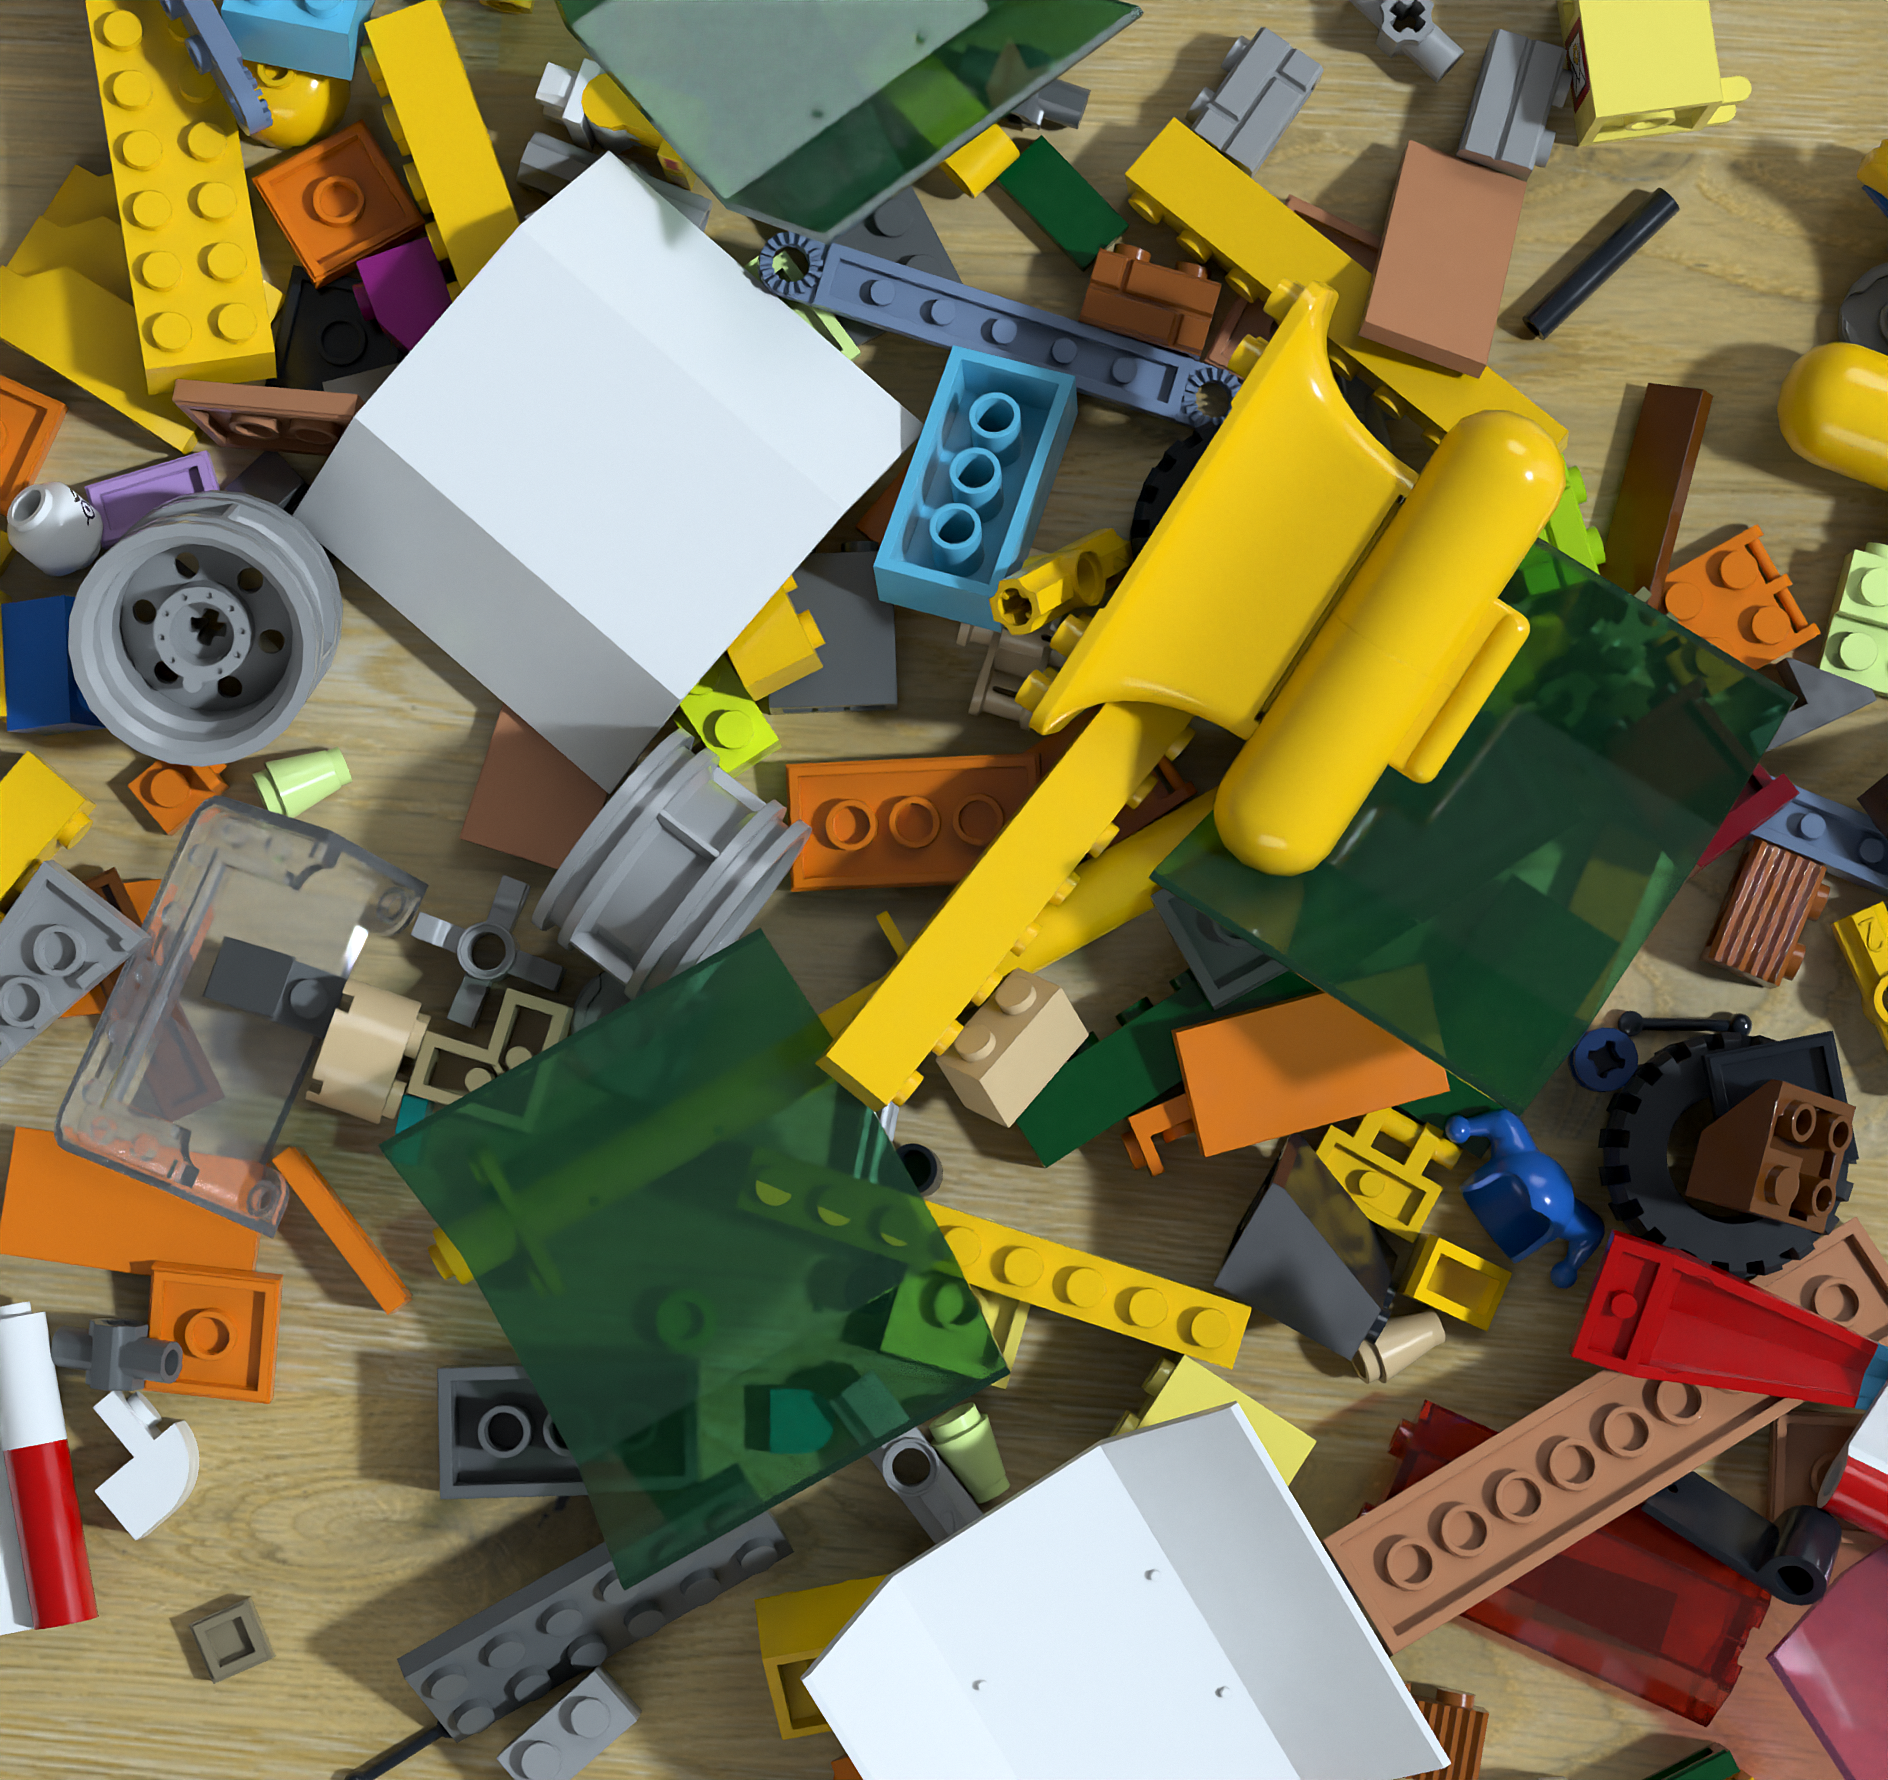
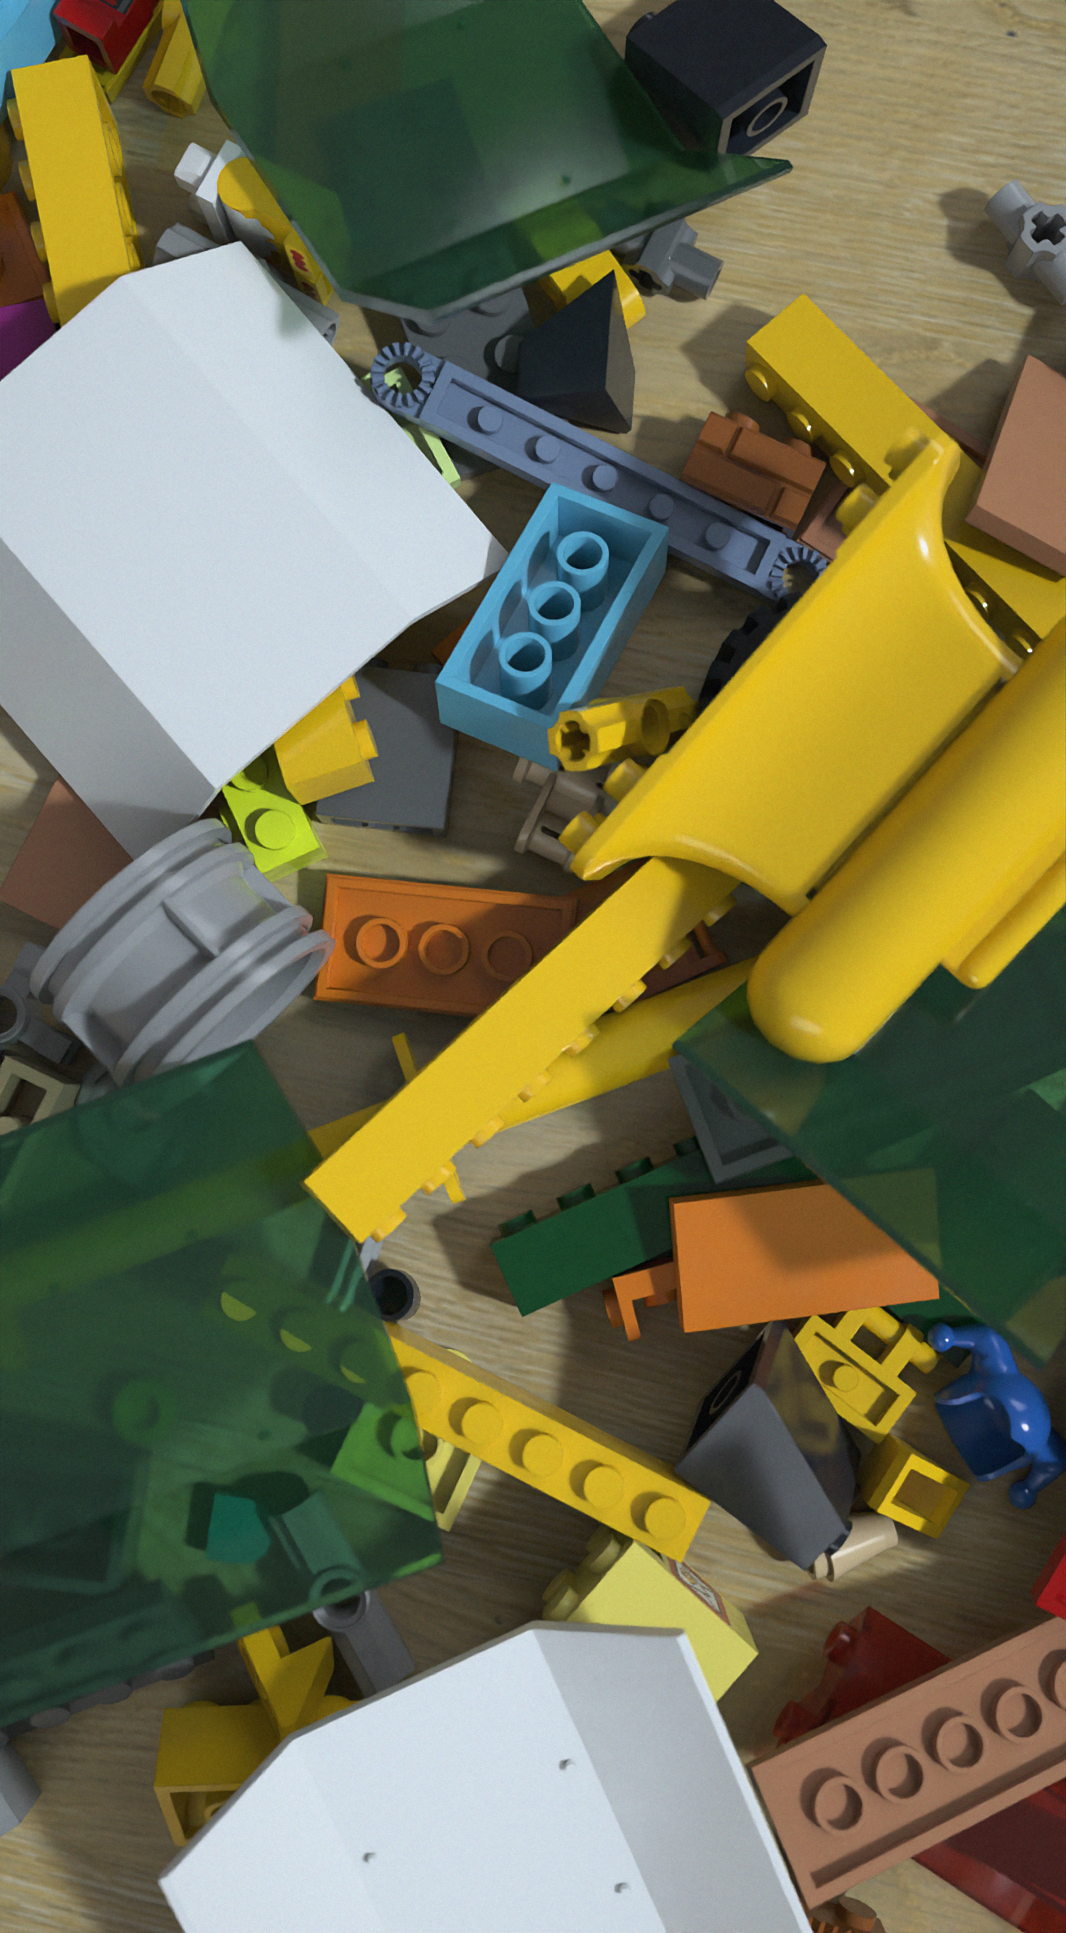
camera: 10 degrees right, 0 degrees up
(858, 1547) = (287, 1682): none -> yellow slope
(963, 217) = (582, 361): none -> black slope
(970, 1450) = (412, 1604): yellowish green cone -> none
(1012, 1047) = (506, 1190): tan brick -> none
(1062, 203) = (680, 369): dark green tile -> none
(1256, 99) = (888, 288): light grey brick -> none

